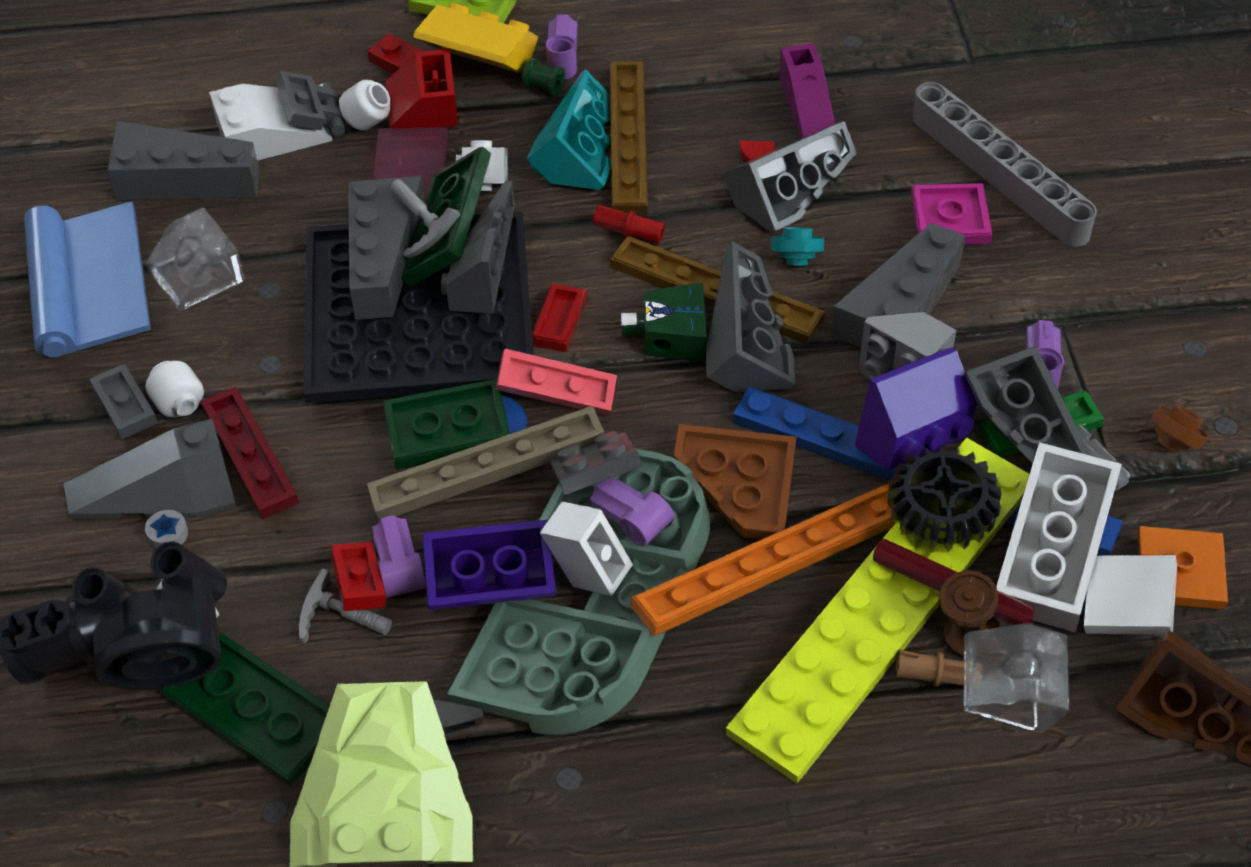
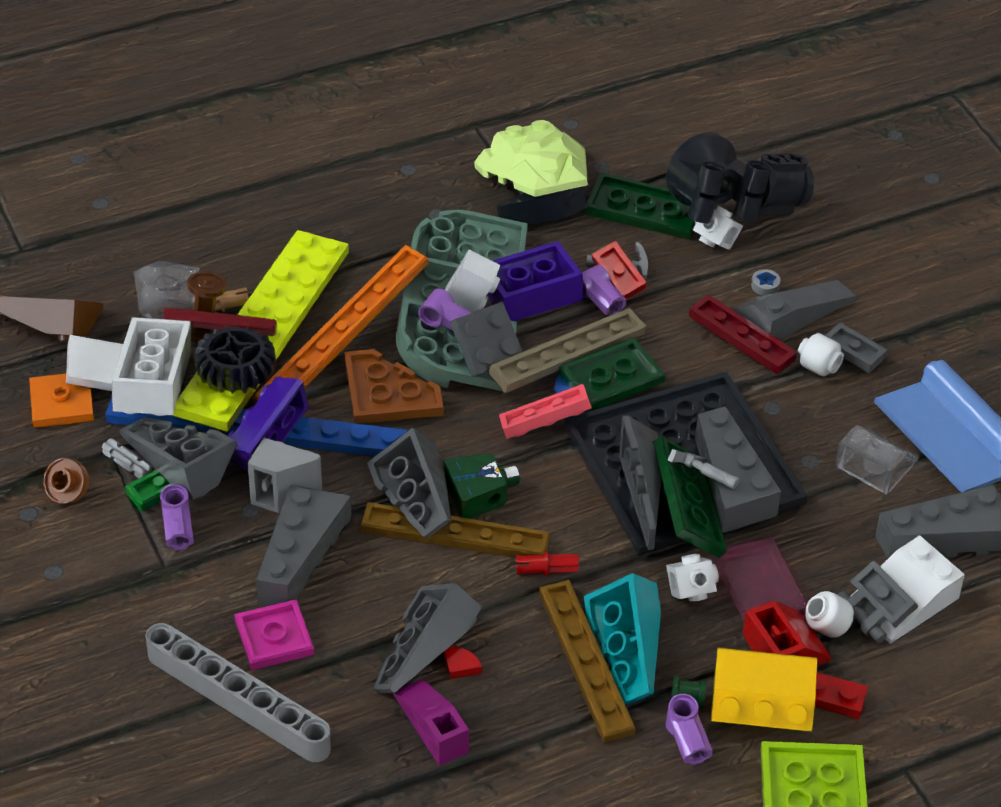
camera: 160 degrees right, 5 degrees down
(558, 317) = (571, 482): red tile -> none
(797, 245) = (398, 567): teal plate -> none

